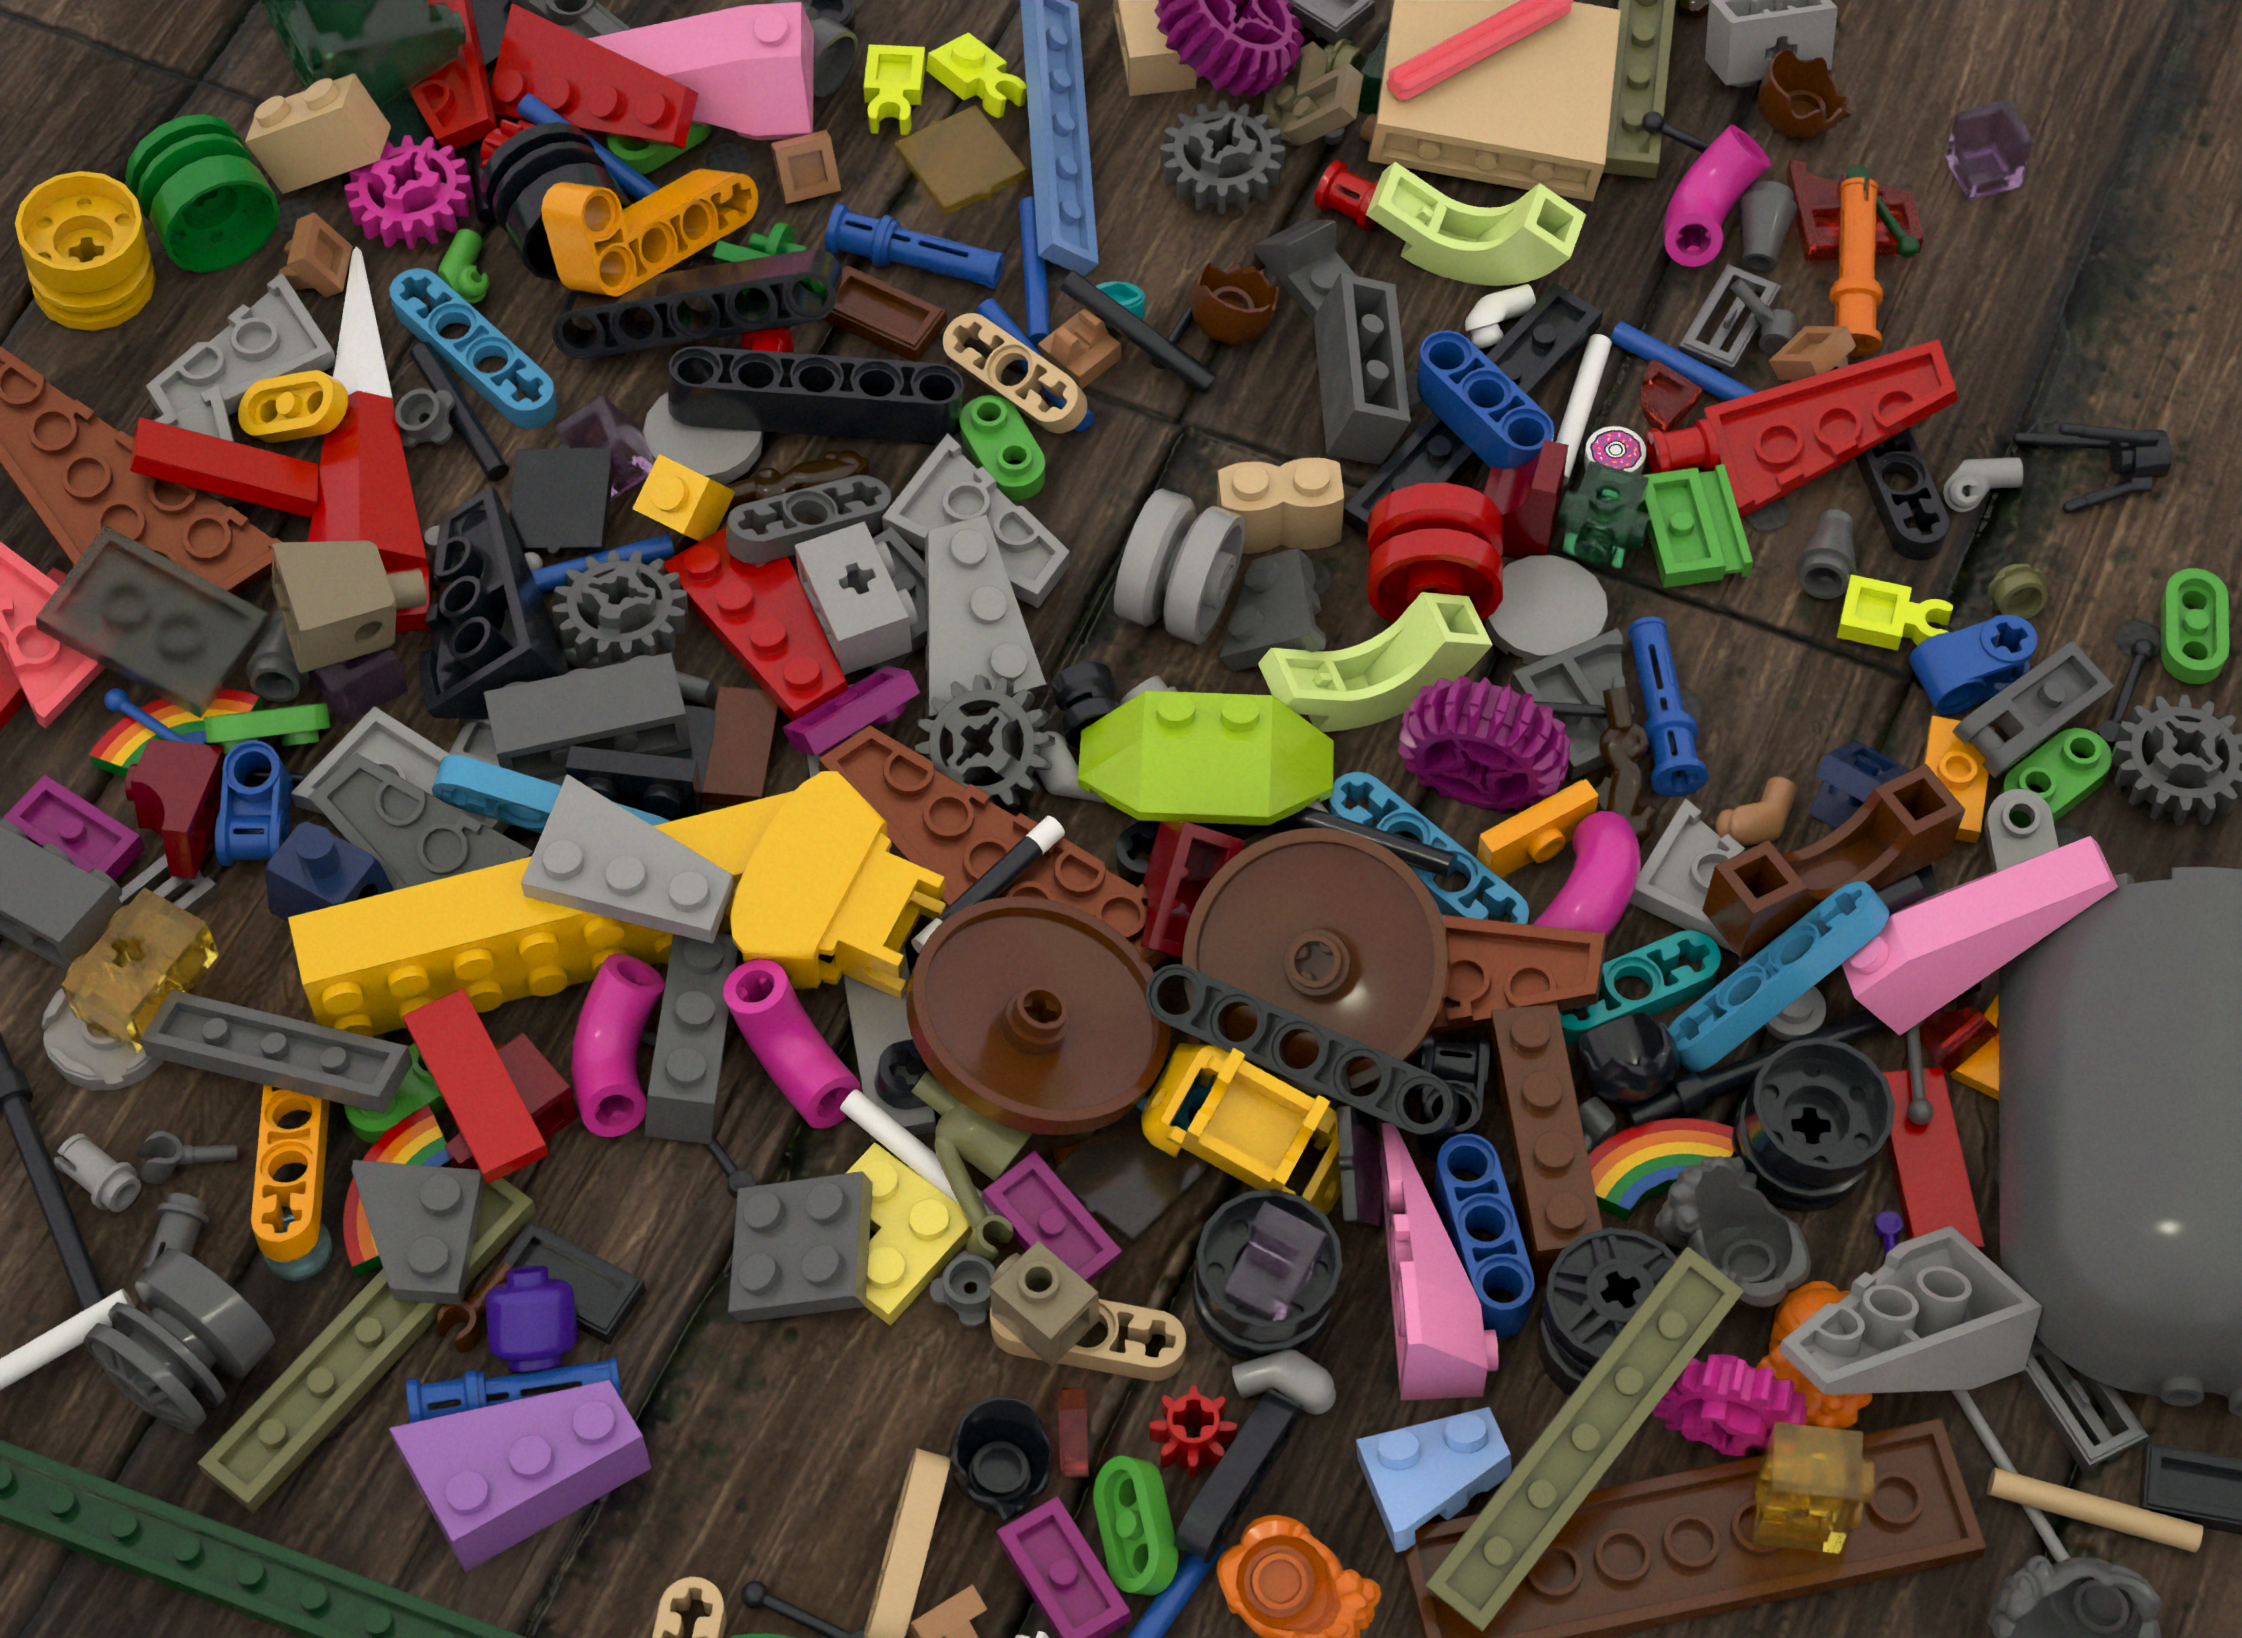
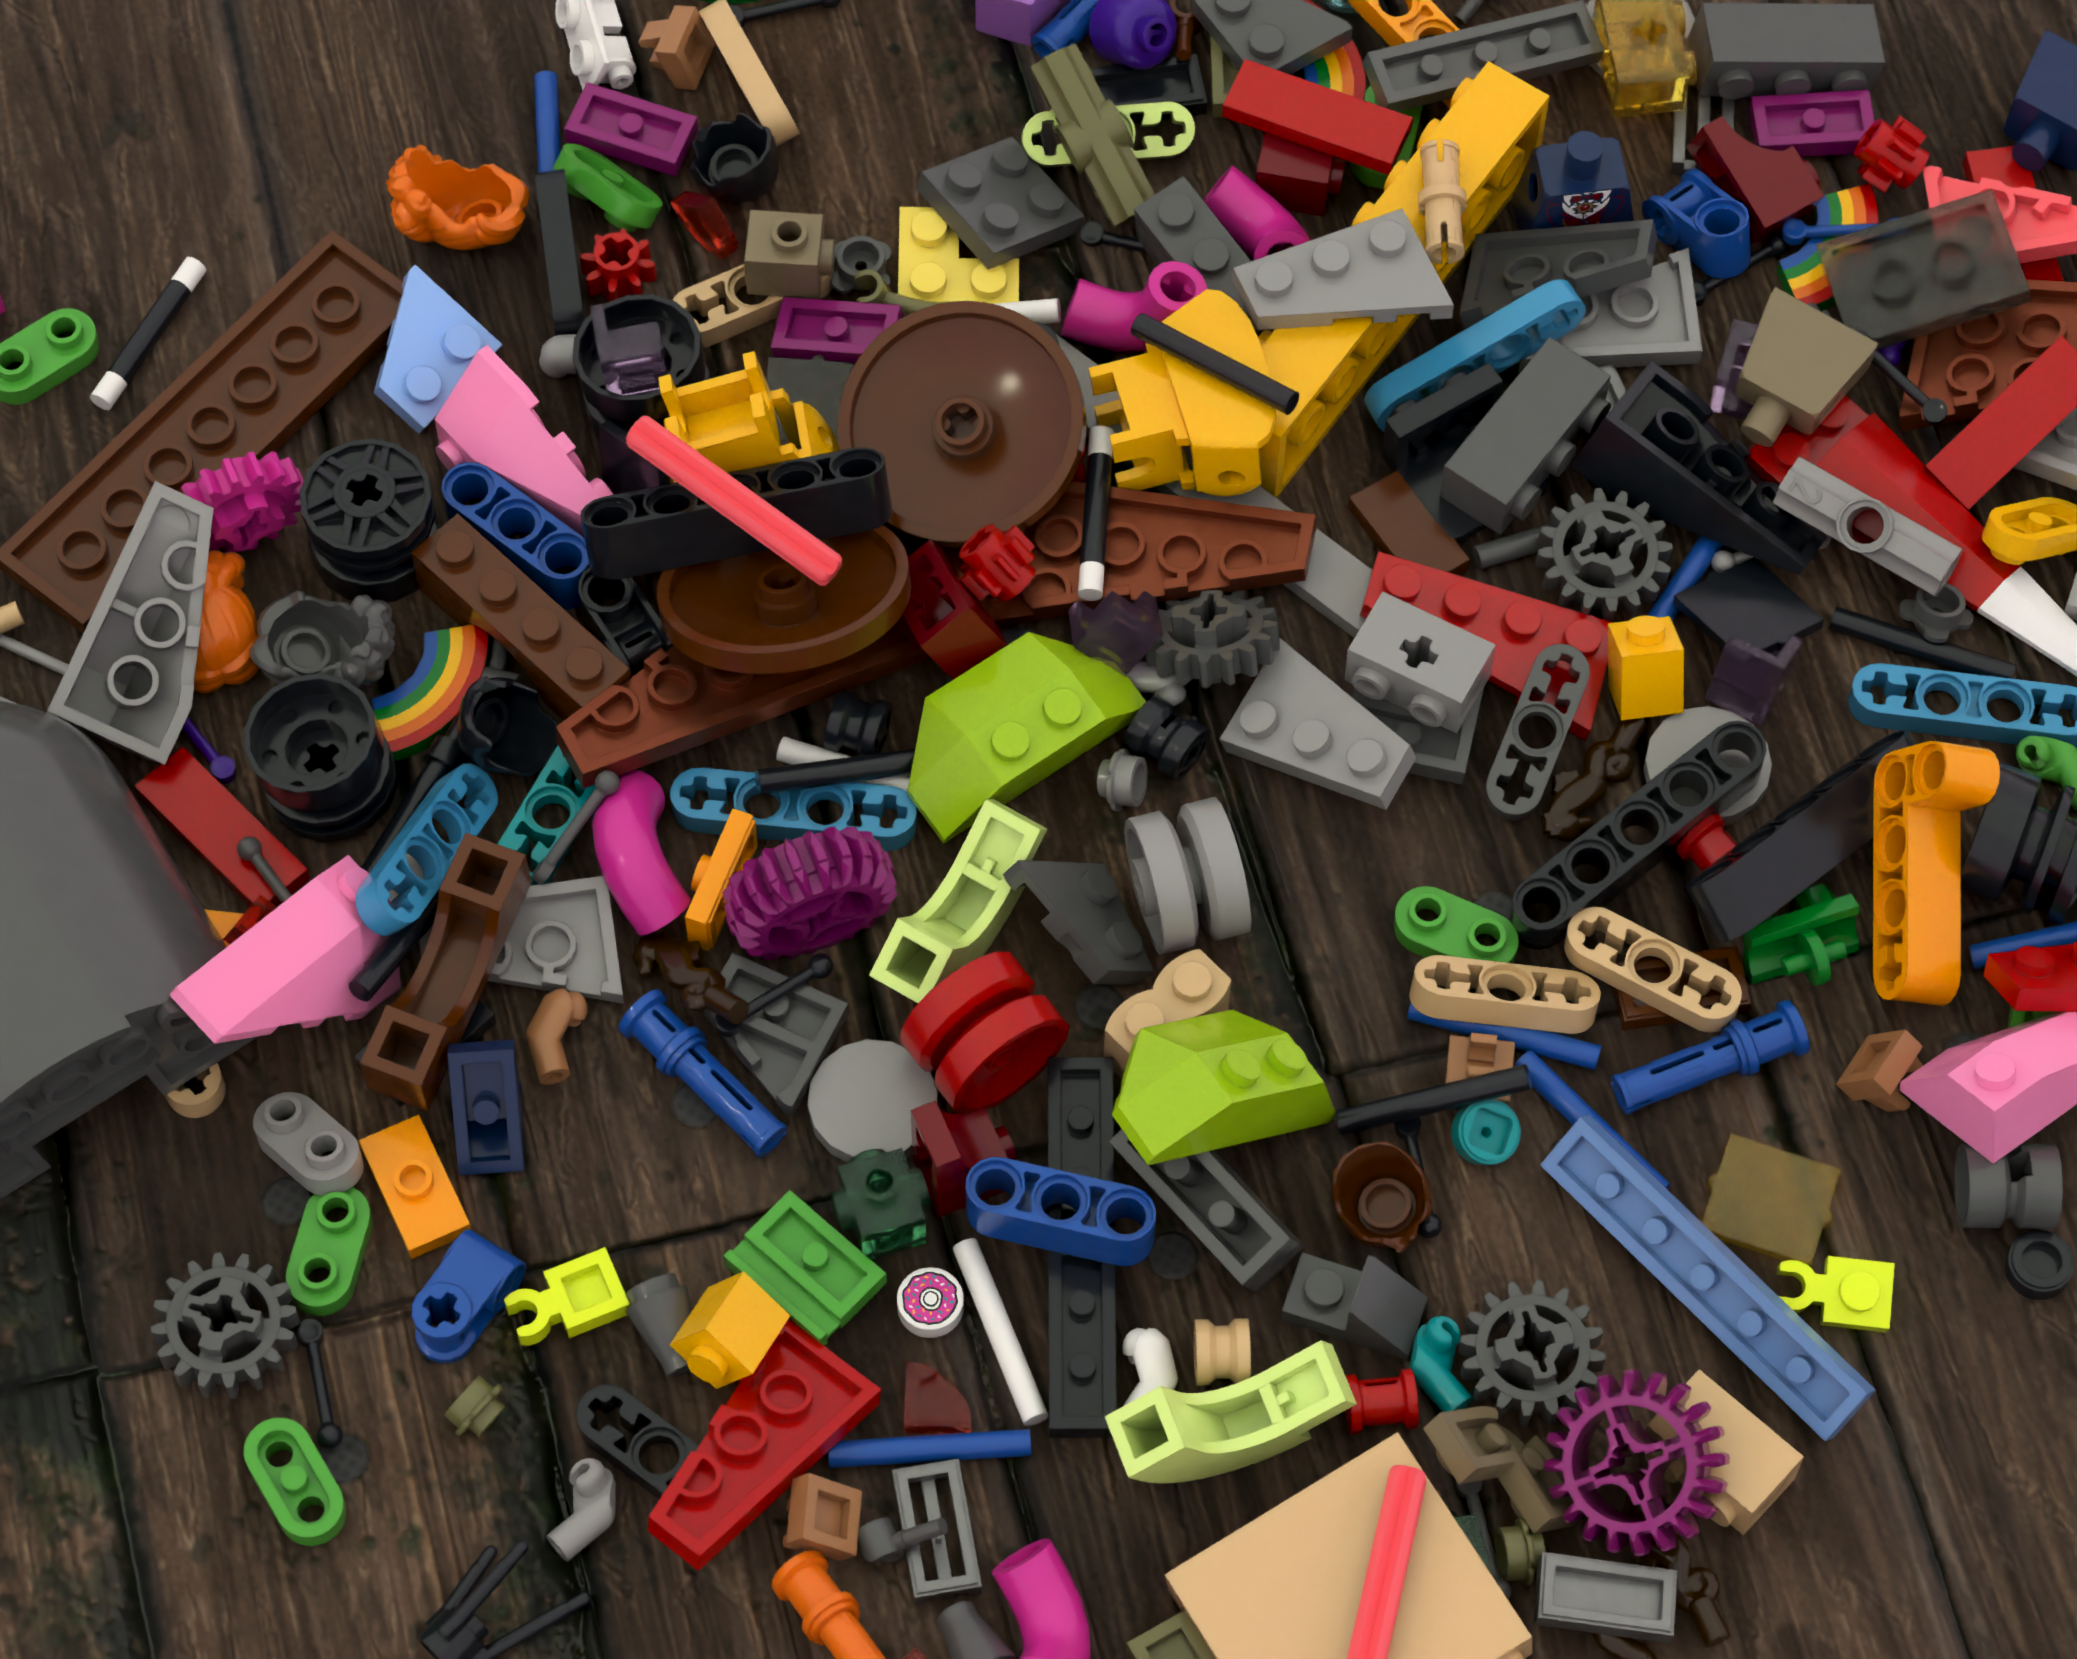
camera: 140 degrees right, 5 degrees up
(52, 746) = (1891, 154): none -> red gear
(267, 525) = (1933, 410): none -> black hinge
(292, 723) = (1766, 261): bright green plate -> none
(417, 473) = (1903, 545): none -> light grey piece
(480, 871) = (1442, 201): none -> tan pin
(673, 1219) = (1092, 133): none -> olive piece
(682, 1274) = (1153, 145): none -> yellowish green beam
(807, 859) = (1215, 363): none -> black bar
(871, 700) = (1335, 582): magenta plate -> none
(893, 83) = (1898, 1224): neon yellow plate -> none
(899, 291) = (1643, 942): none -> tan beam
(953, 491) = (1426, 837): light grey wing -> none
(1056, 785) = (1116, 630): none -> panel
(1101, 870) = (997, 563): none -> red gear
(1293, 203) = (1433, 1362): none -> teal arm
(1303, 384) = (1216, 1086): none -> lime wedge
(1318, 1010) = (734, 500): none -> coral axle
(1435, 286) = (1221, 1351): none -> tan wheel
(1583, 1439) = (317, 384): olive plate -> none
(1681, 921) = (606, 784): none -> dark grey hinge
(1682, 448) = (872, 1335): red bush -> none
(1793, 498) = (729, 1330): none -> yellow brick
(1811, 1487) = (128, 450): clear yellow brick -> none
(2034, 708) = (382, 1280): dark grey plate -> none

